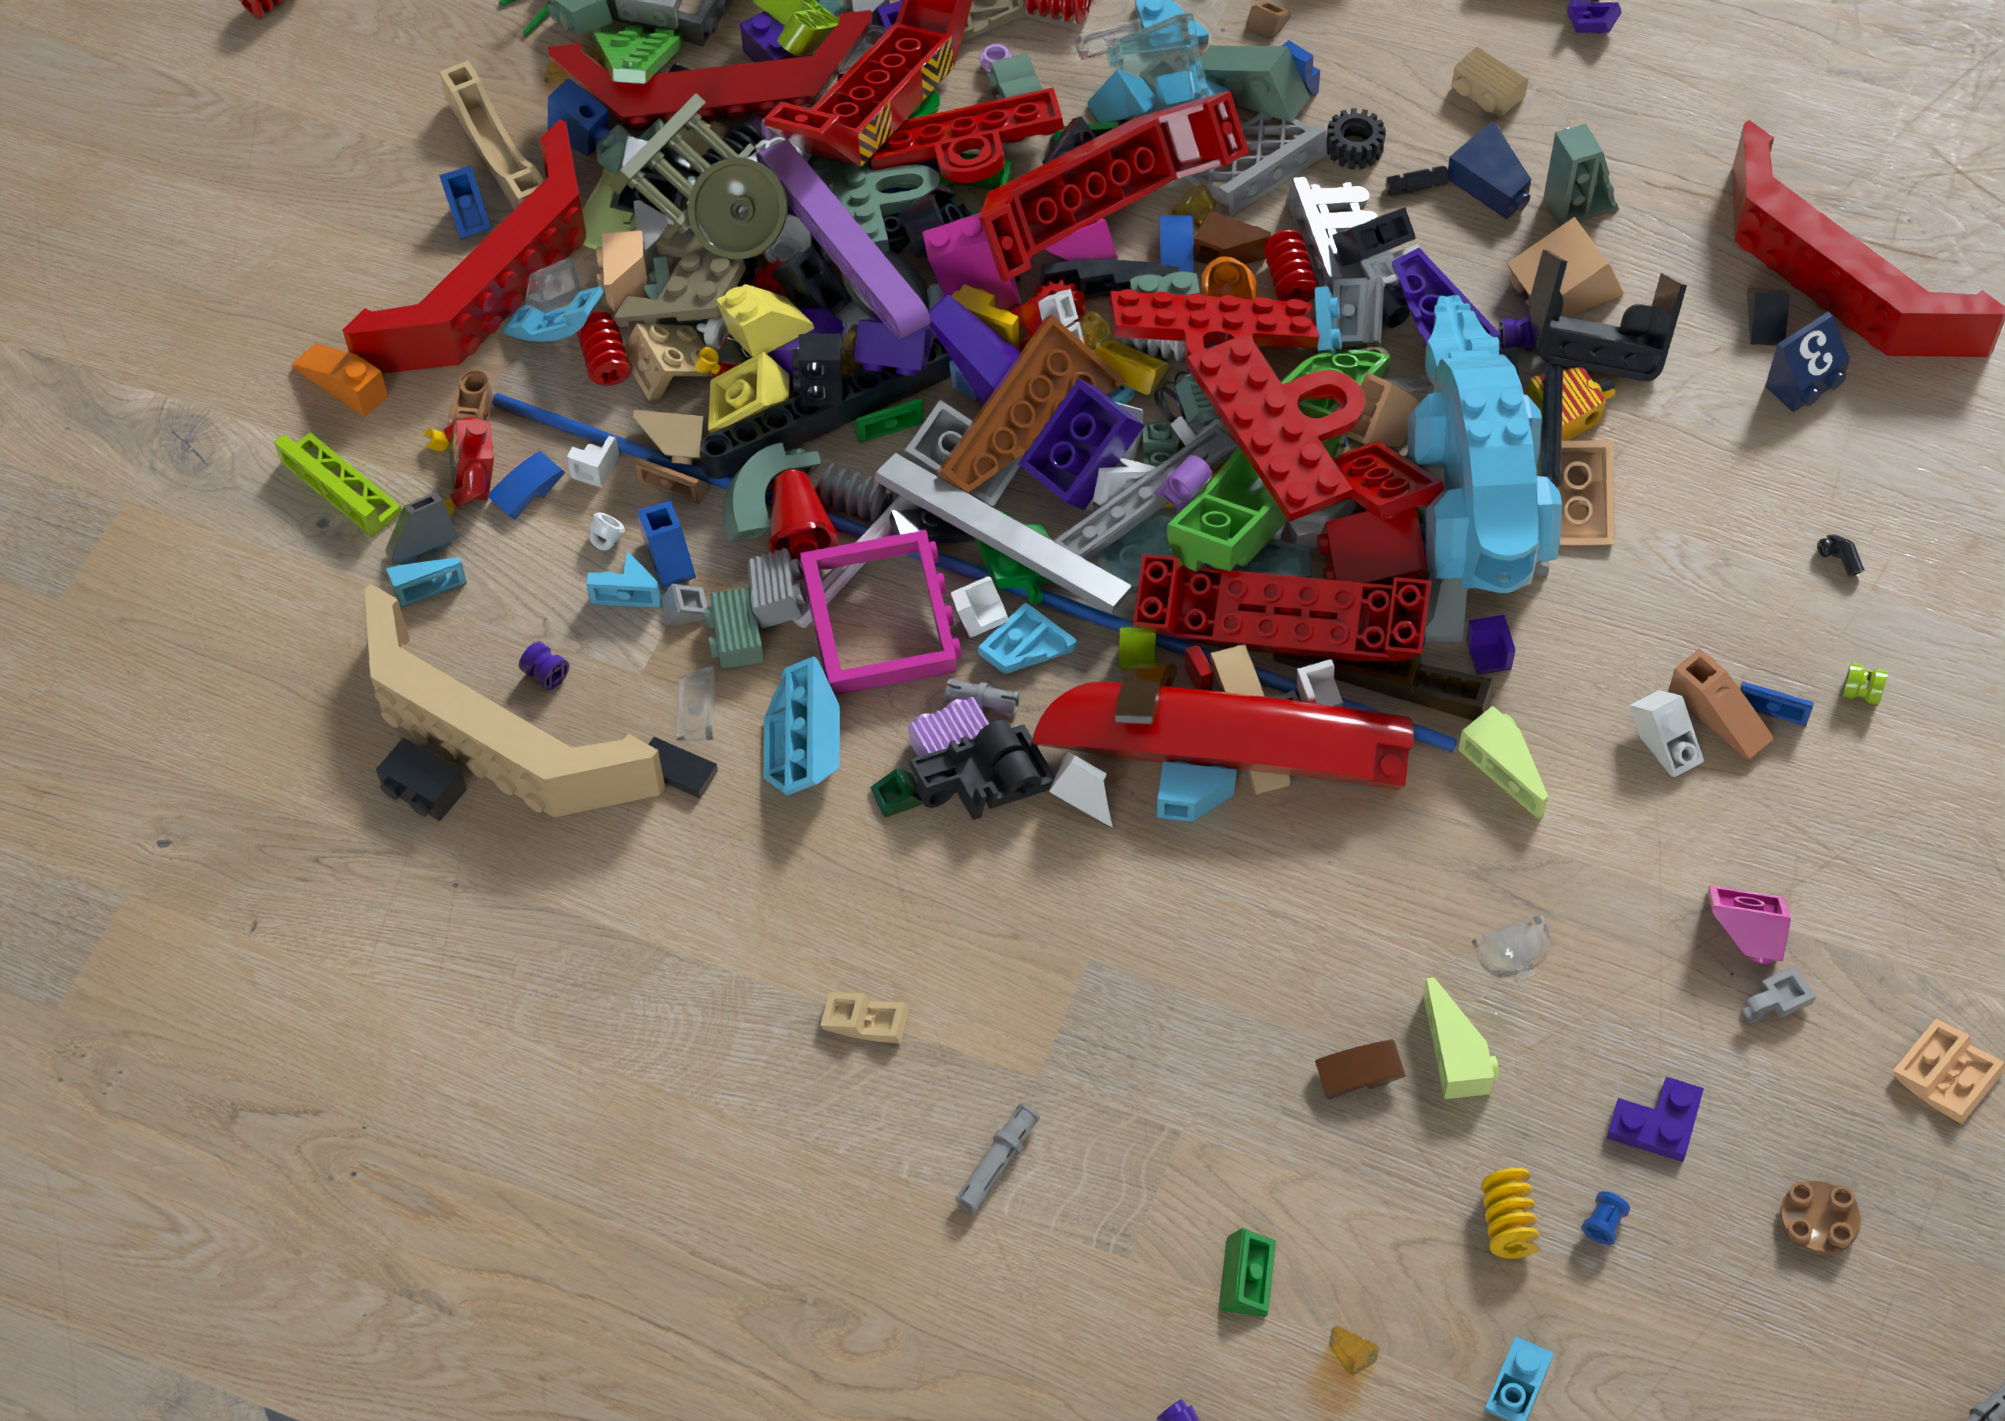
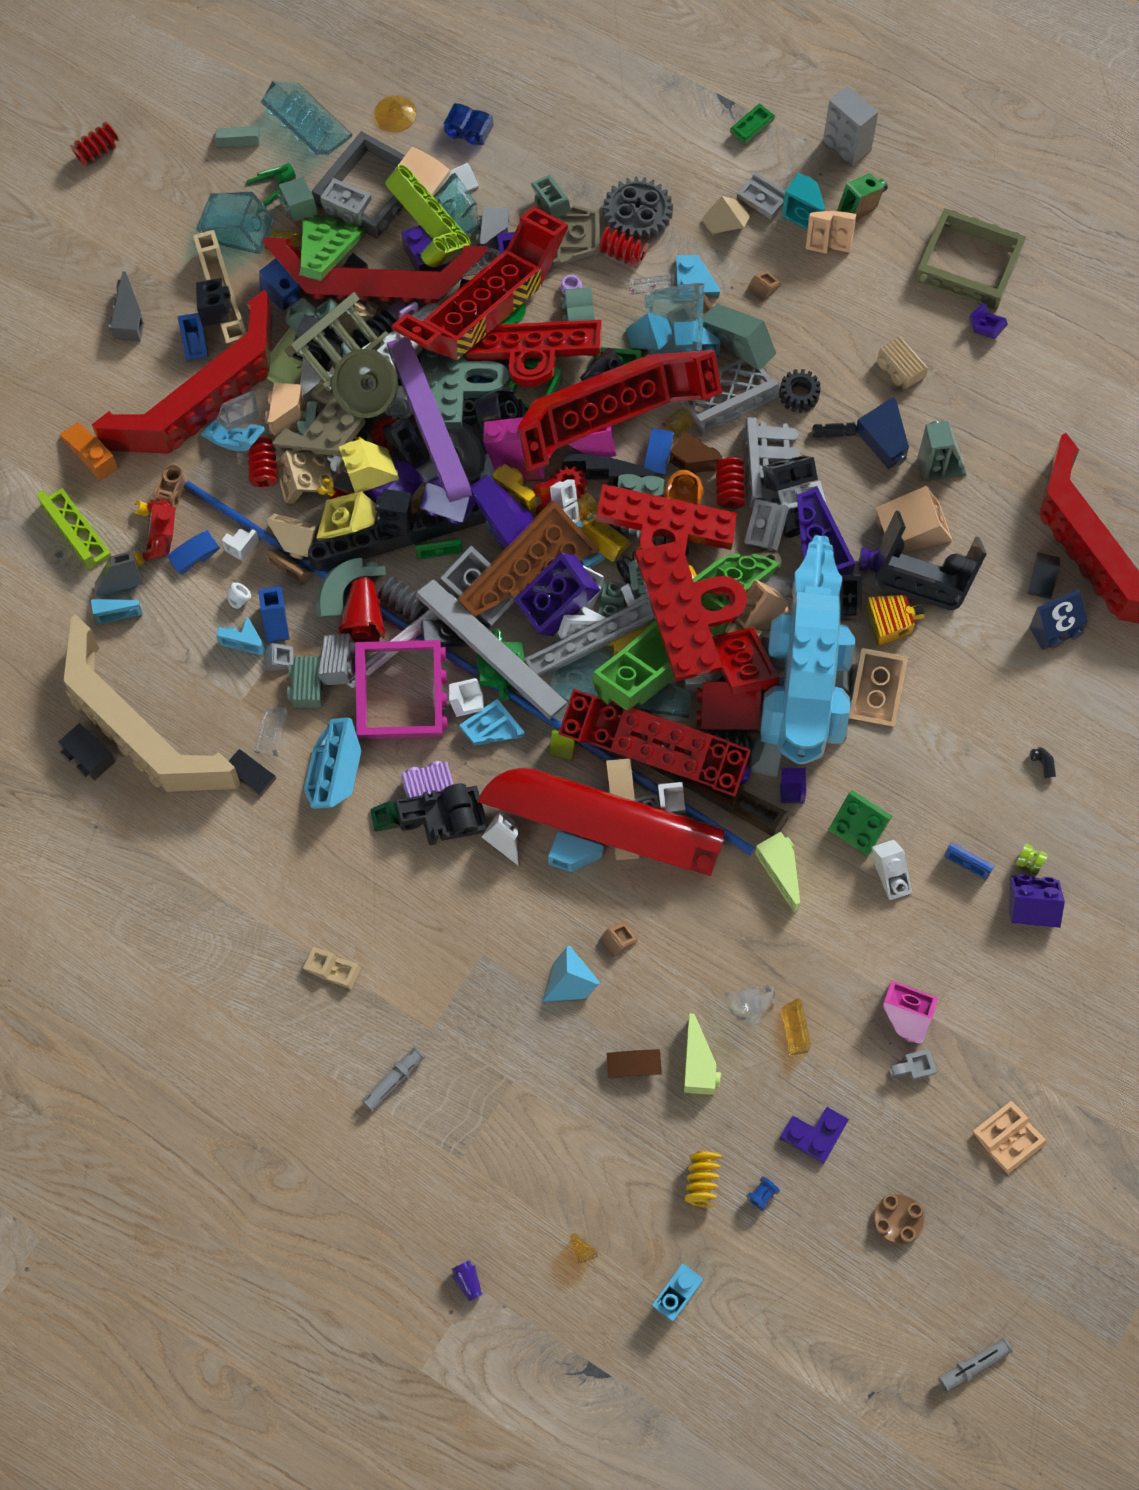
camera: 10 degrees right, 10 degrees up
(362, 191) = (127, 318): none -> dark grey slope
(488, 149) = (213, 301): none -> black brick
(500, 46) = (237, 220): none -> clear light blue slope
(547, 668) = (179, 686): dark purple wheel -> none
(984, 696) = (455, 760): light grey pin -> none
(1141, 691) = (552, 781): dark brown slope -> none
(1185, 482) = (614, 639): medium lavender piece -> none
(1198, 668) = (598, 767): red tile -> none
(1231, 967) = (570, 978): none -> medium azure slope
(1247, 1273) = (531, 1184): green slope -> none
(1288, 900) = (618, 939): none -> medium nougat slope
(1304, 64) = (776, 335): blue slope -> none
(1326, 310) = (744, 523): medium azure plate -> none
(1552, 424) = (869, 641): black axle -> none
(1588, 974) = (795, 1027): none -> clear yellow slope
(1604, 674) = (860, 822): none -> green plate
(1720, 704) = (931, 857): nougat slope -> none
(1889, 738) = (1036, 901): none -> dark purple slope

